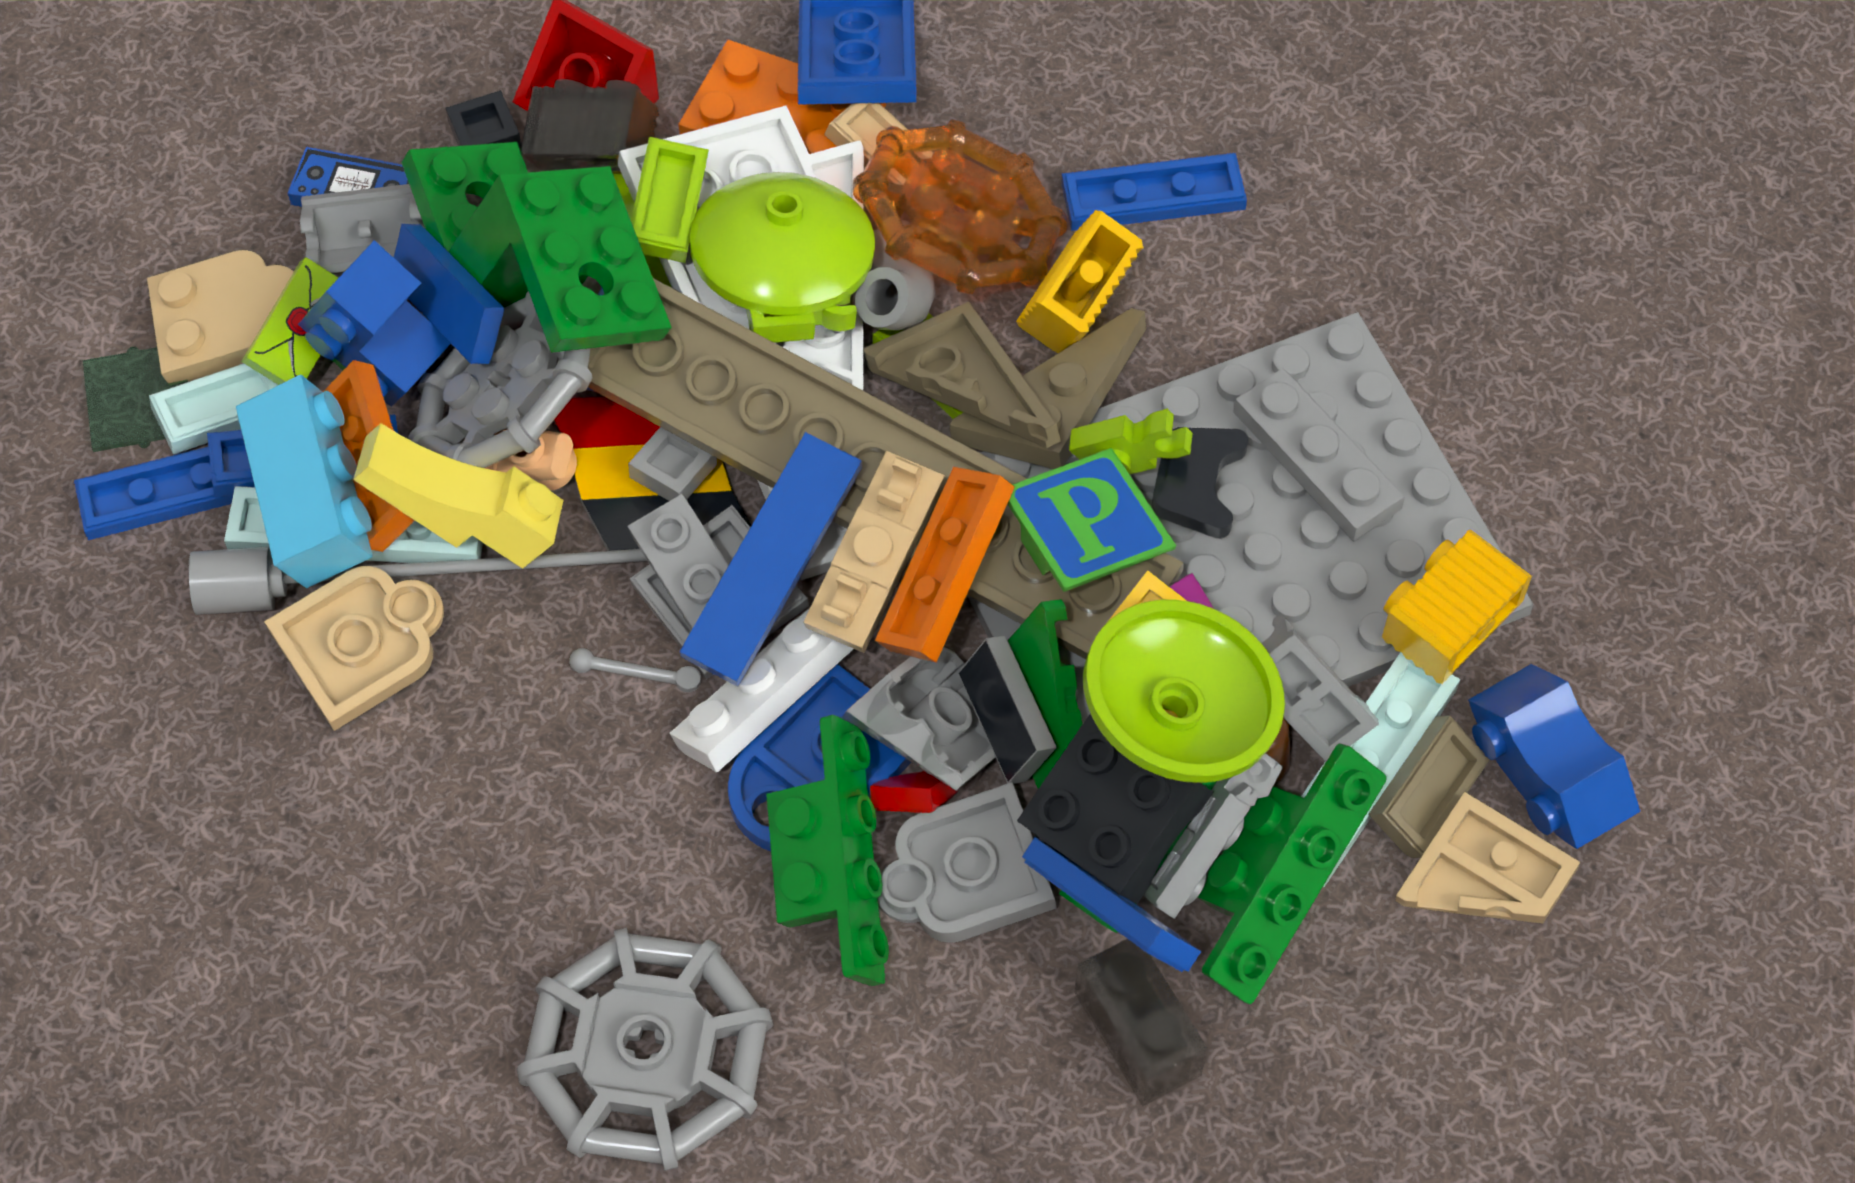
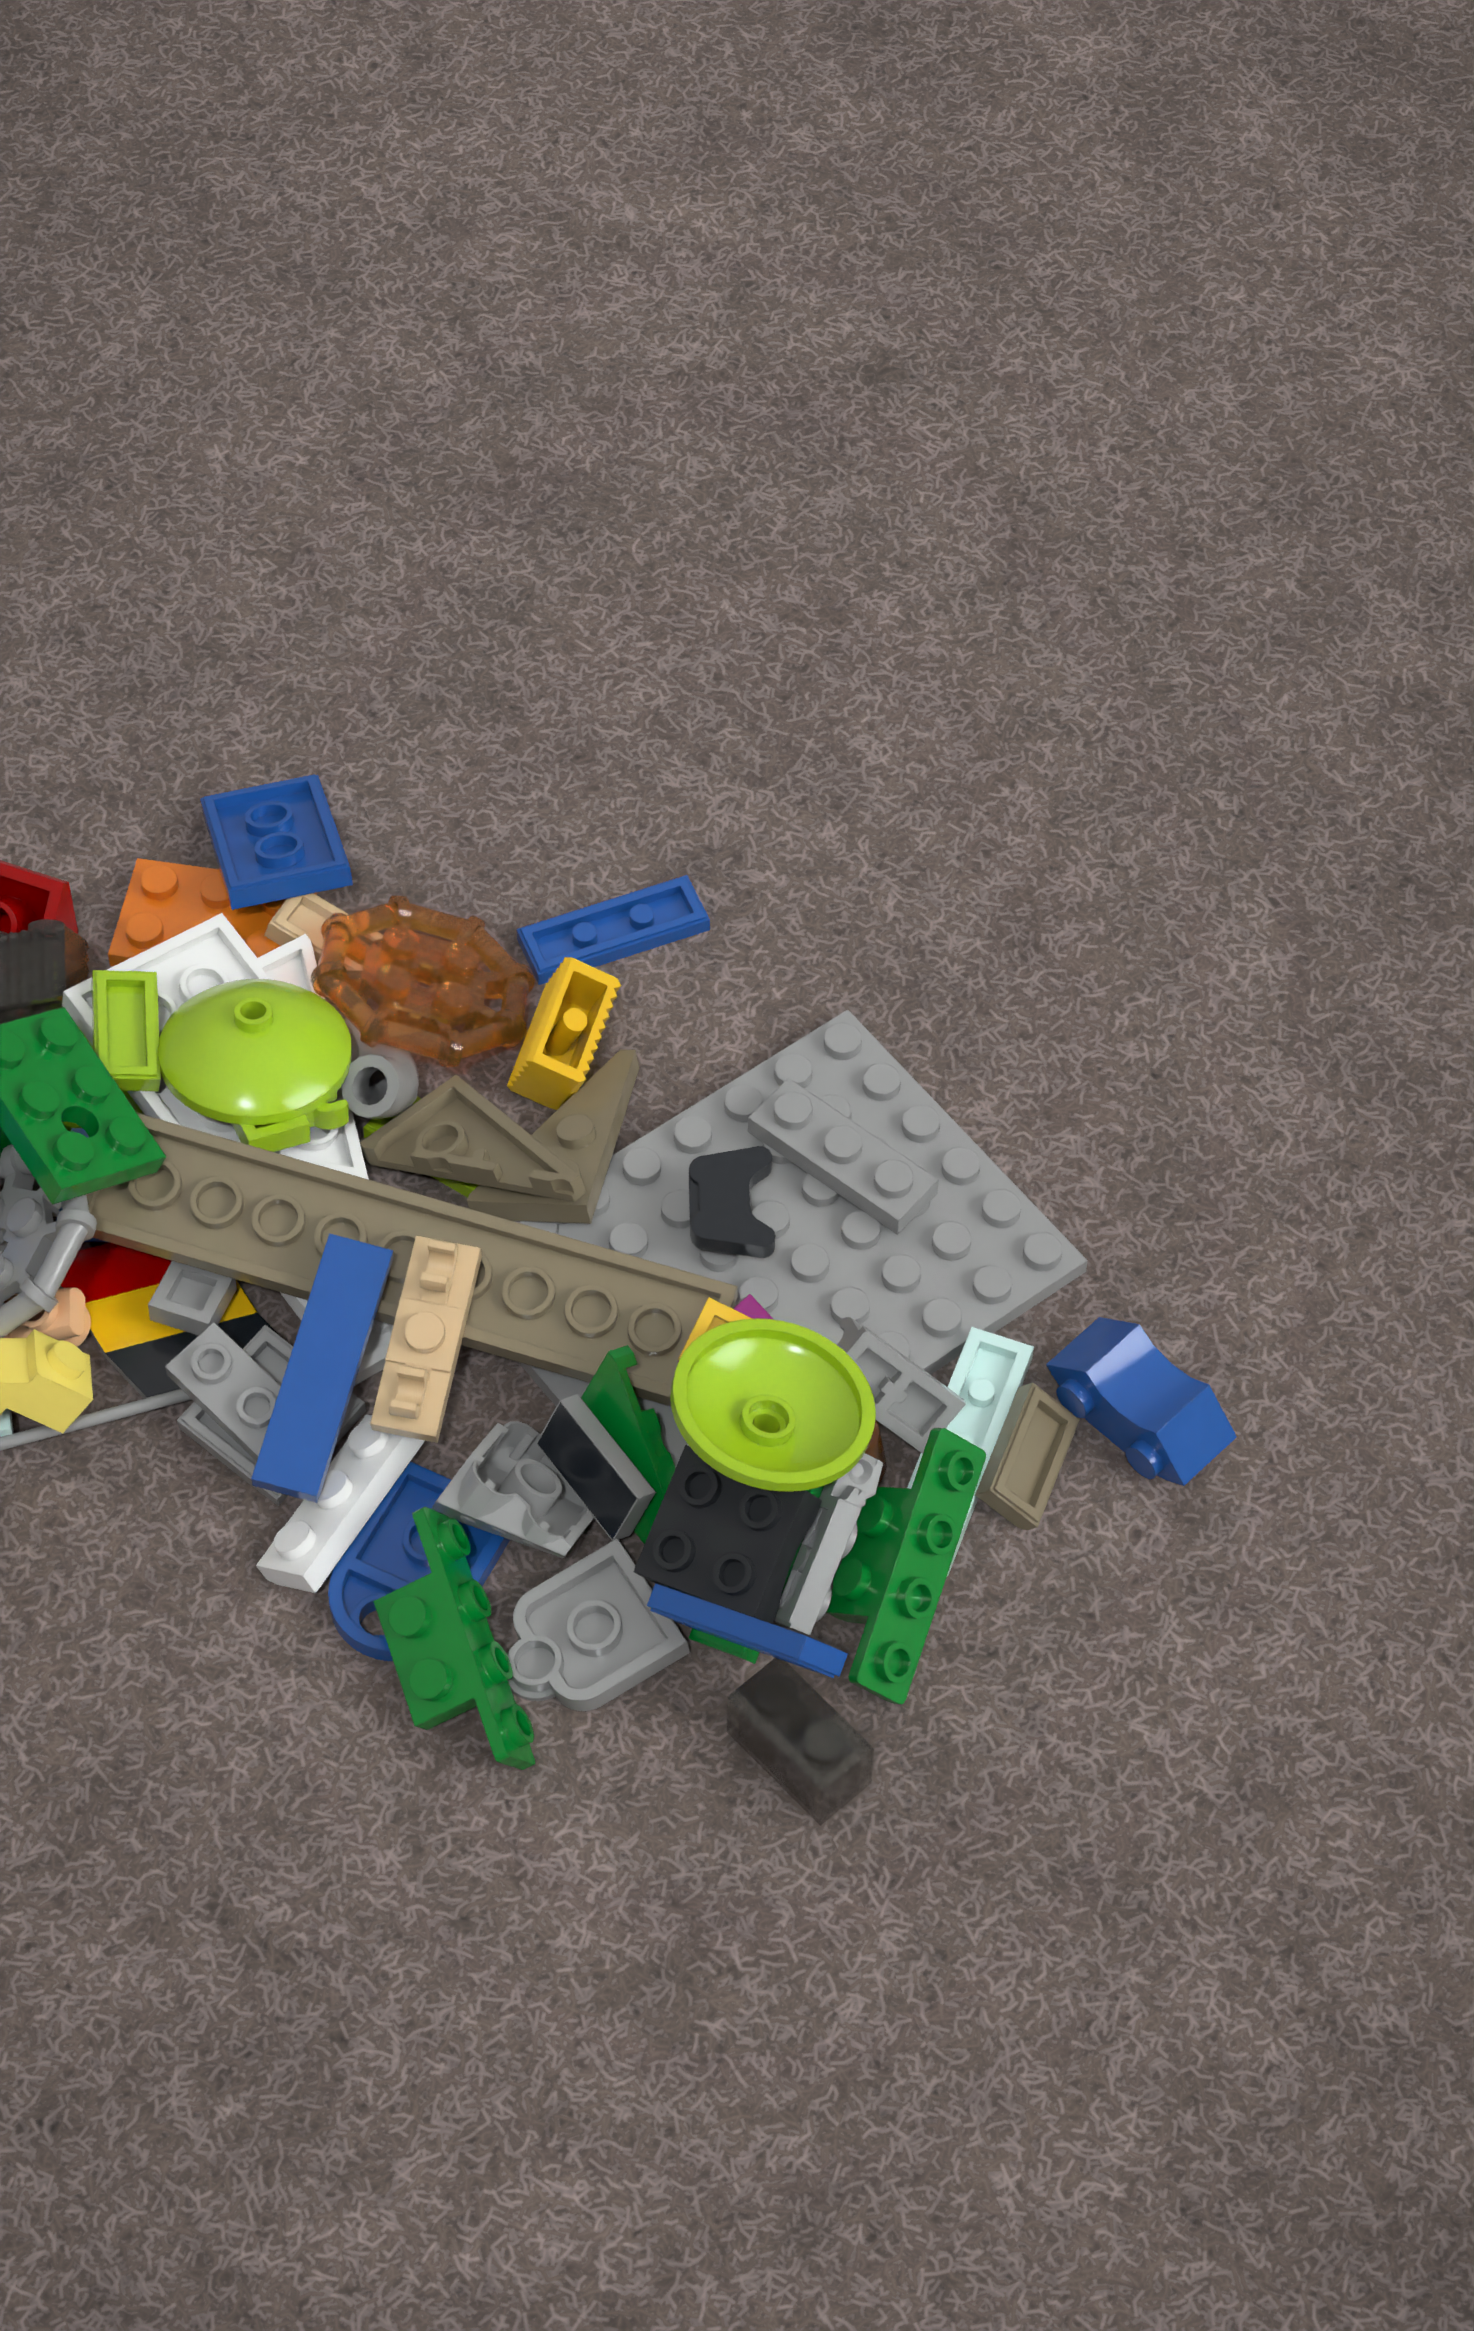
camera: 15 degrees left, 5 degrees down
(664, 1079) = (317, 1914): light grey plate -> none
(686, 678) = (258, 1509): light grey hinge -> none
(910, 793) = (517, 1571): red tile -> none
(944, 564) = (501, 1335): orange plate -> none
(1087, 520) = (632, 1264): piece -> none
(1133, 443) = (650, 1186): lime plate -> none
(1454, 604) = (1011, 1275): yellow brick -> none
(1488, 868) = (1103, 1523): tan wing -> none

